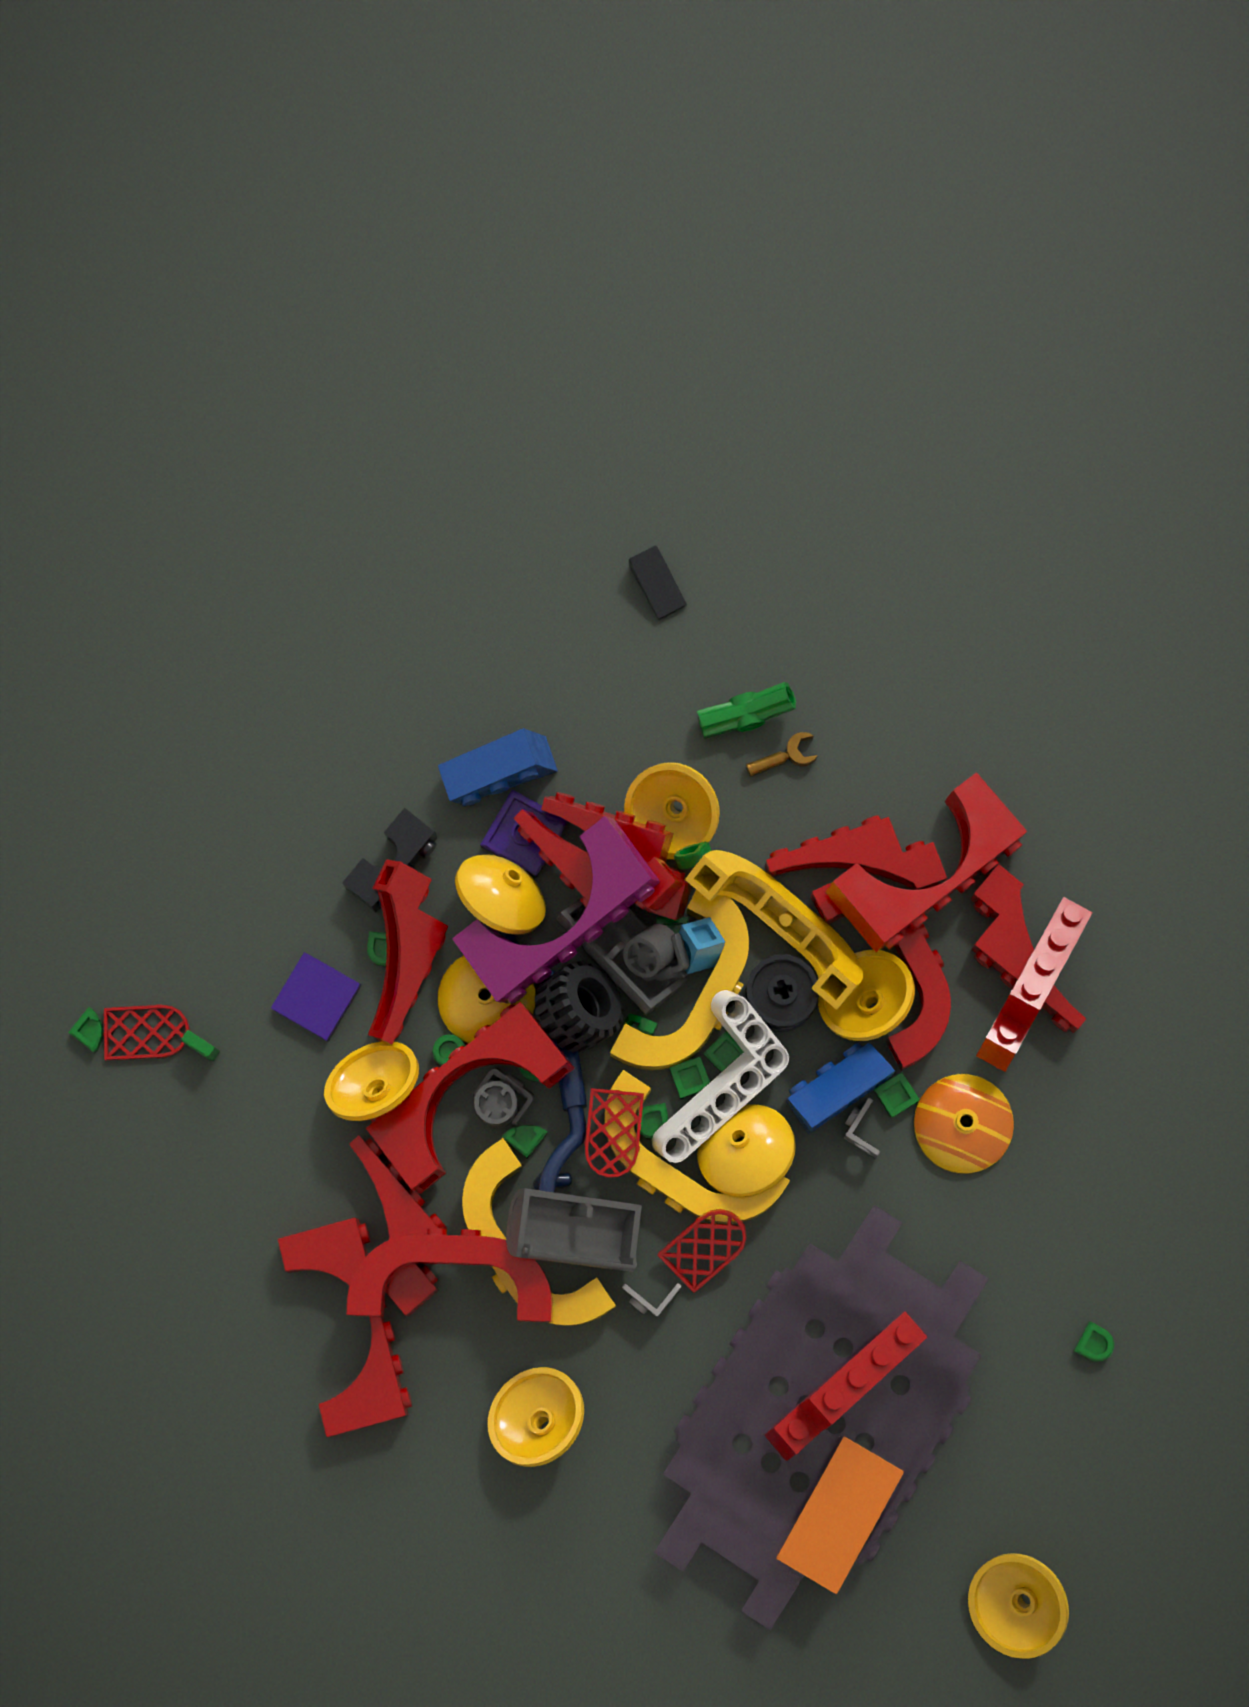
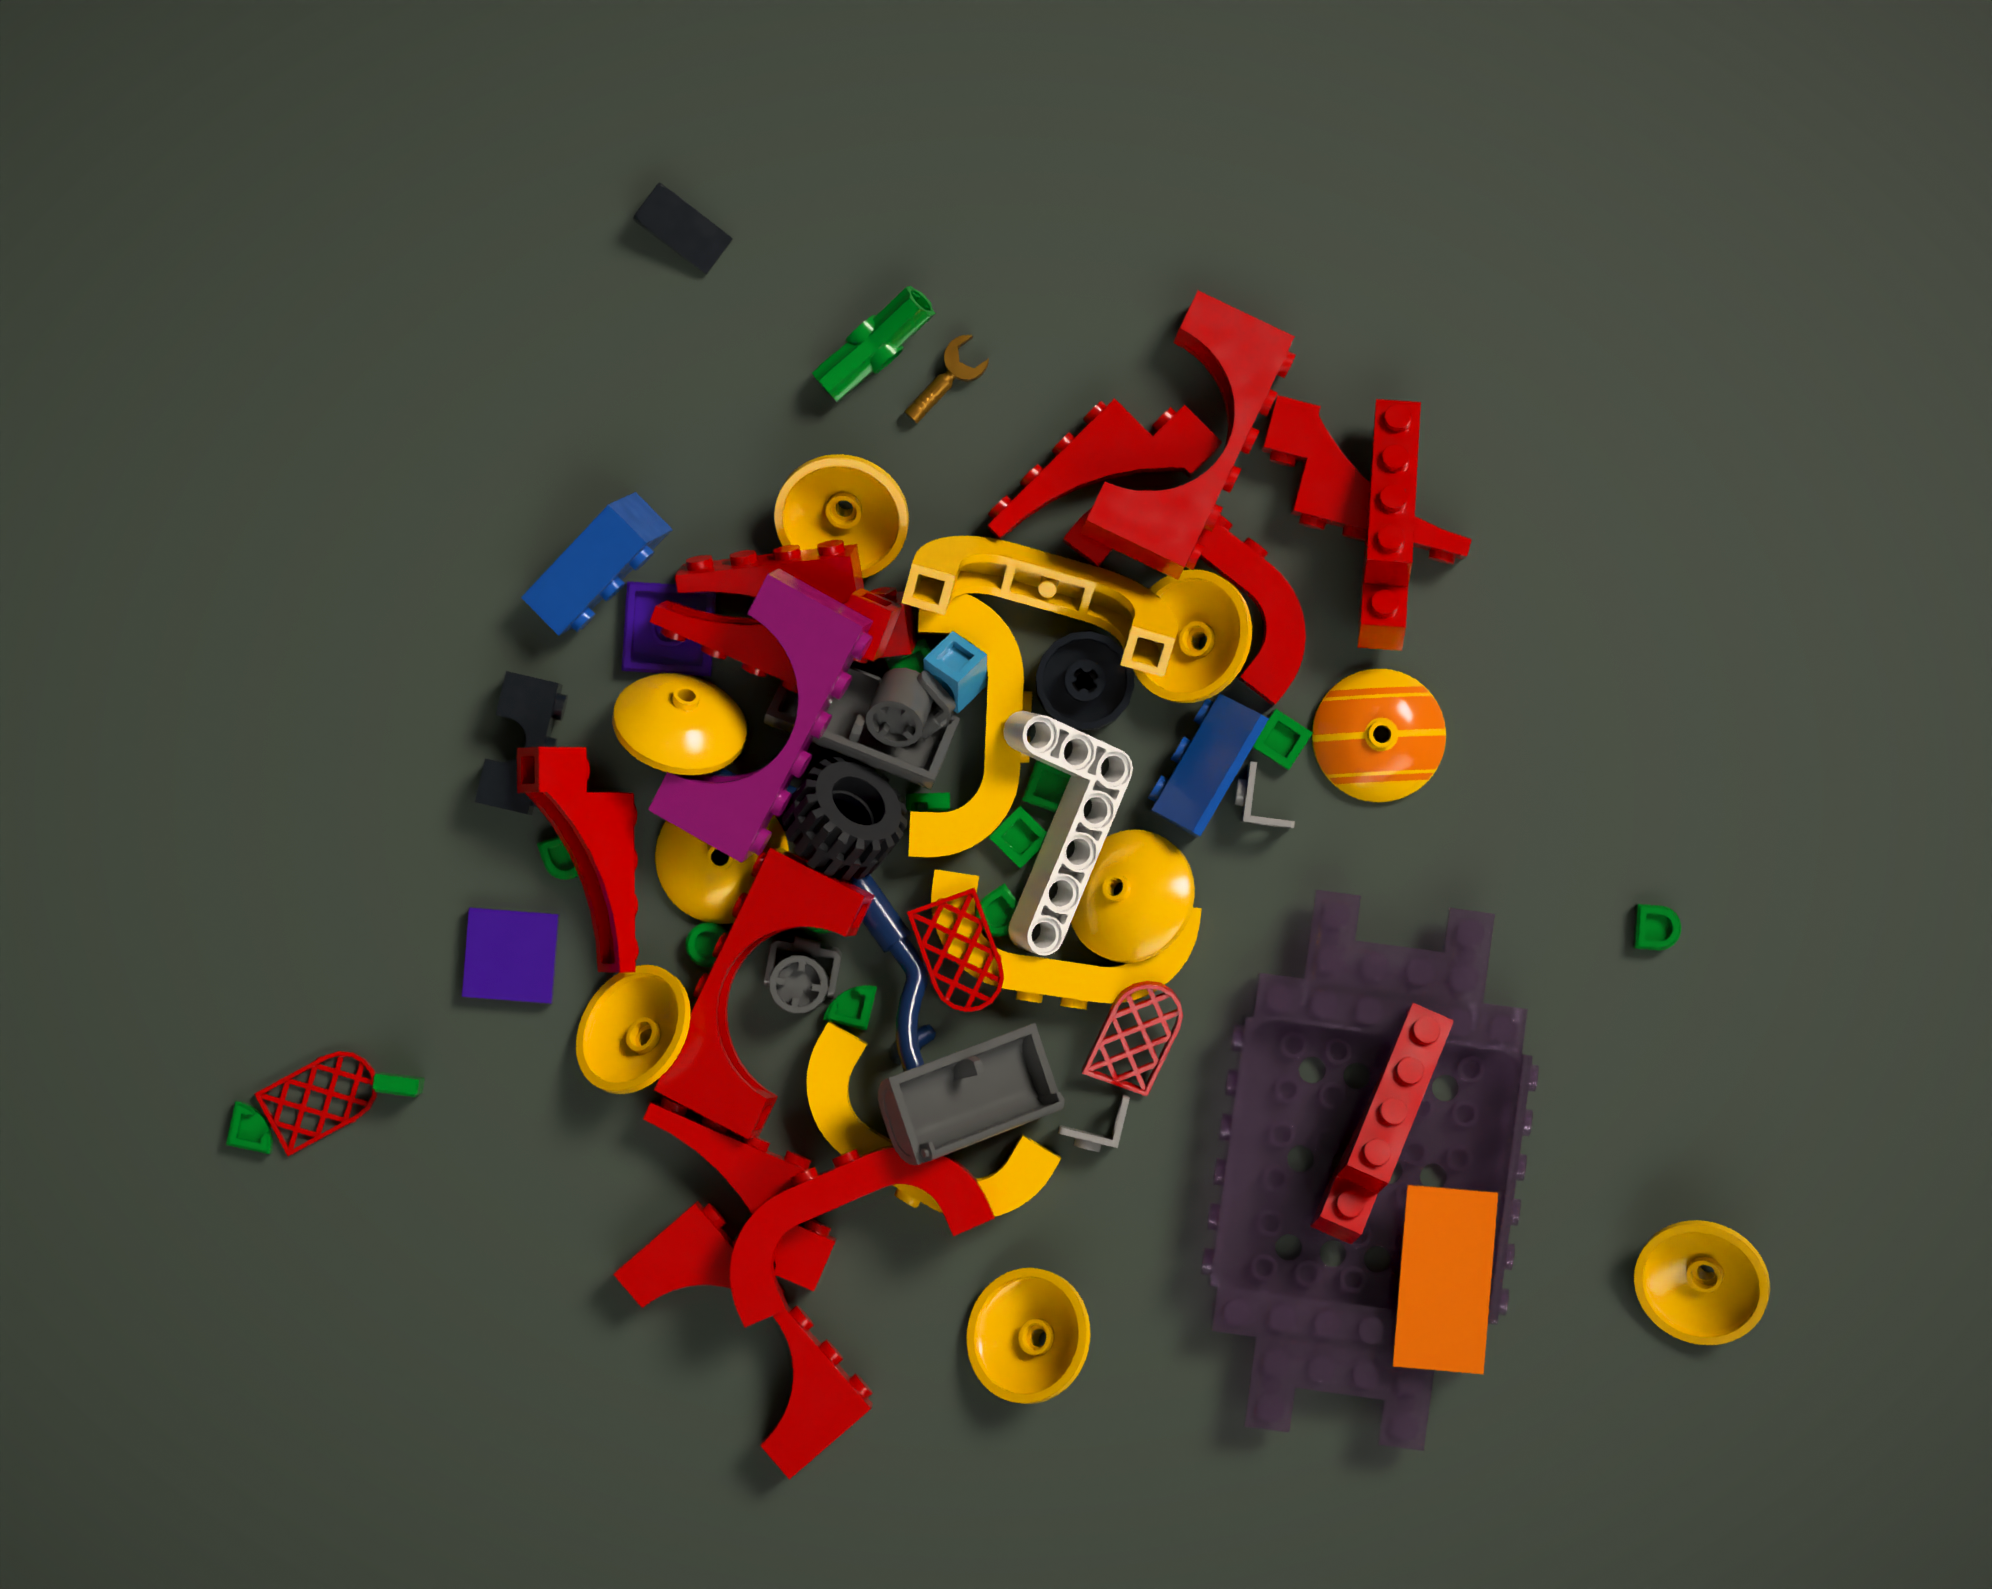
camera: 30 degrees left, 10 degrees up
(691, 855) = (894, 562): green tile -> none

